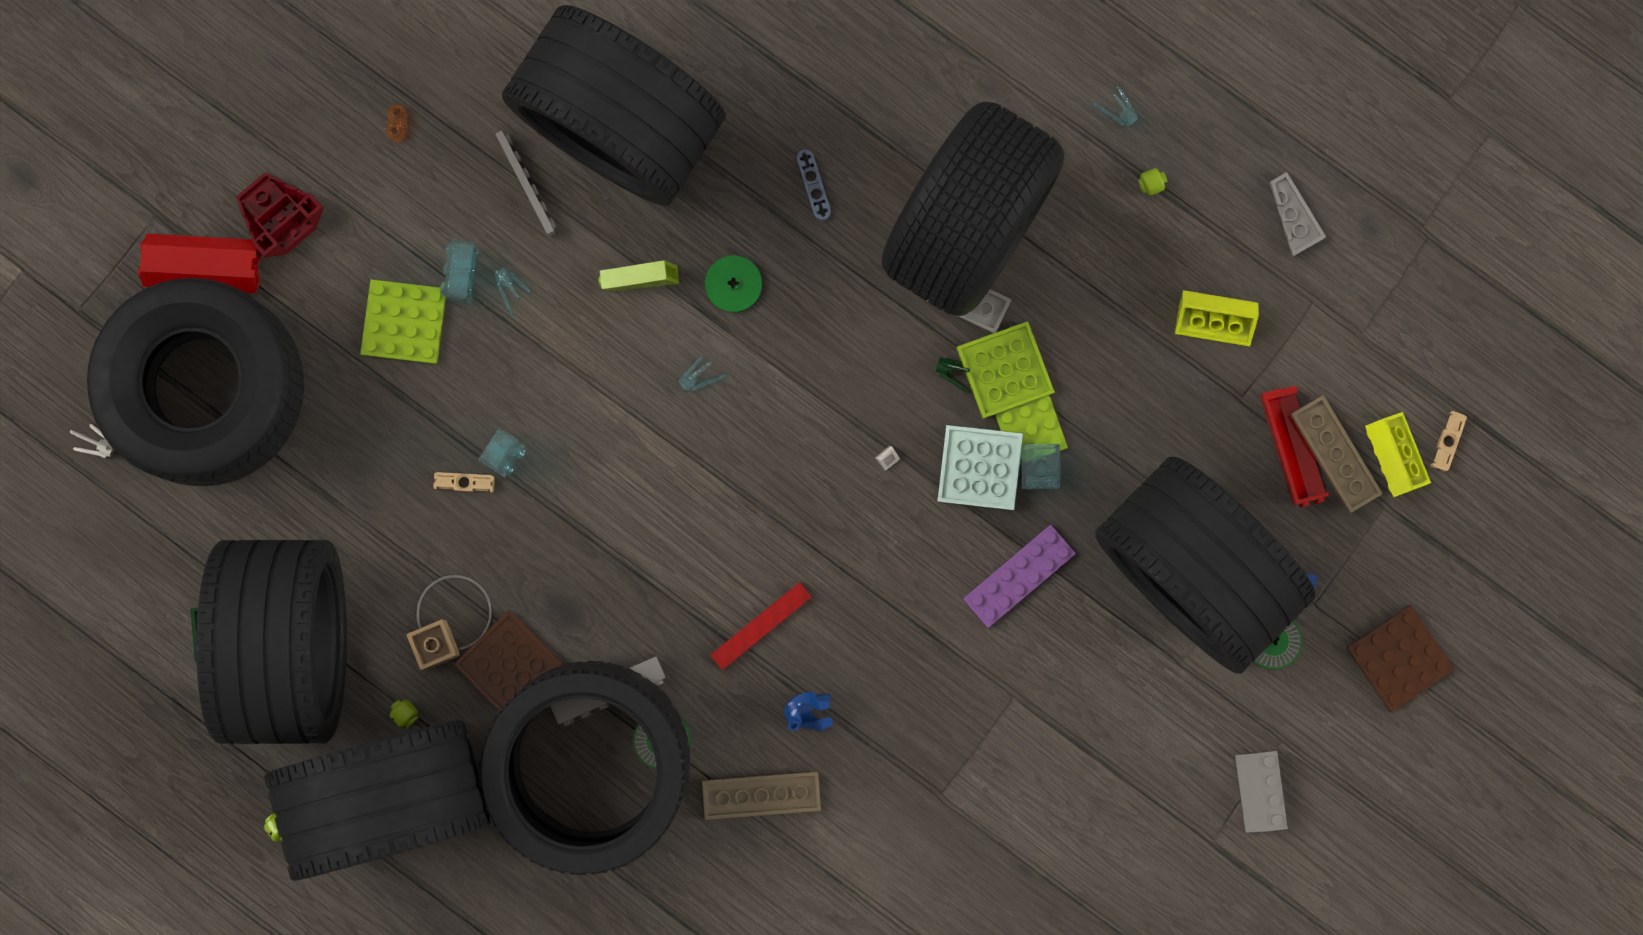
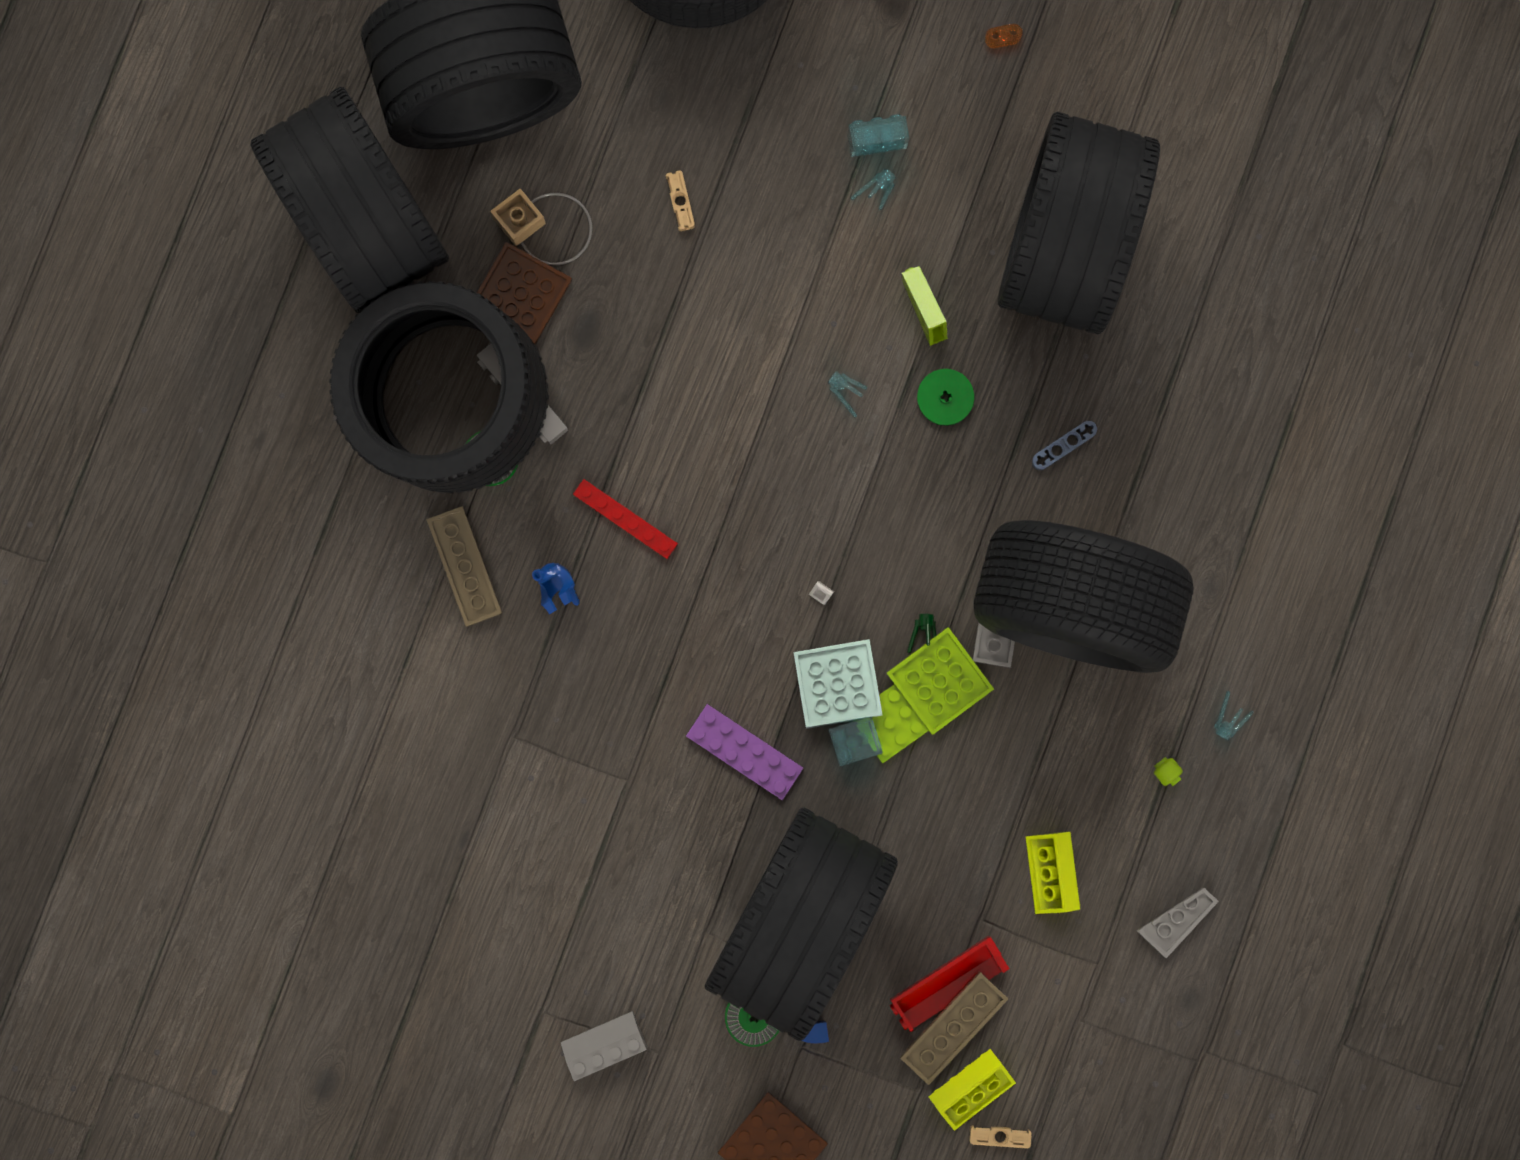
camera: 75 degrees right, 0 degrees up
(403, 322) = (815, 99): lime plate -> none
(404, 713) = (446, 210): lime head -> none
(502, 453) = (716, 225): clear light blue brick -> none
(523, 176) = (988, 167): light grey plate -> none

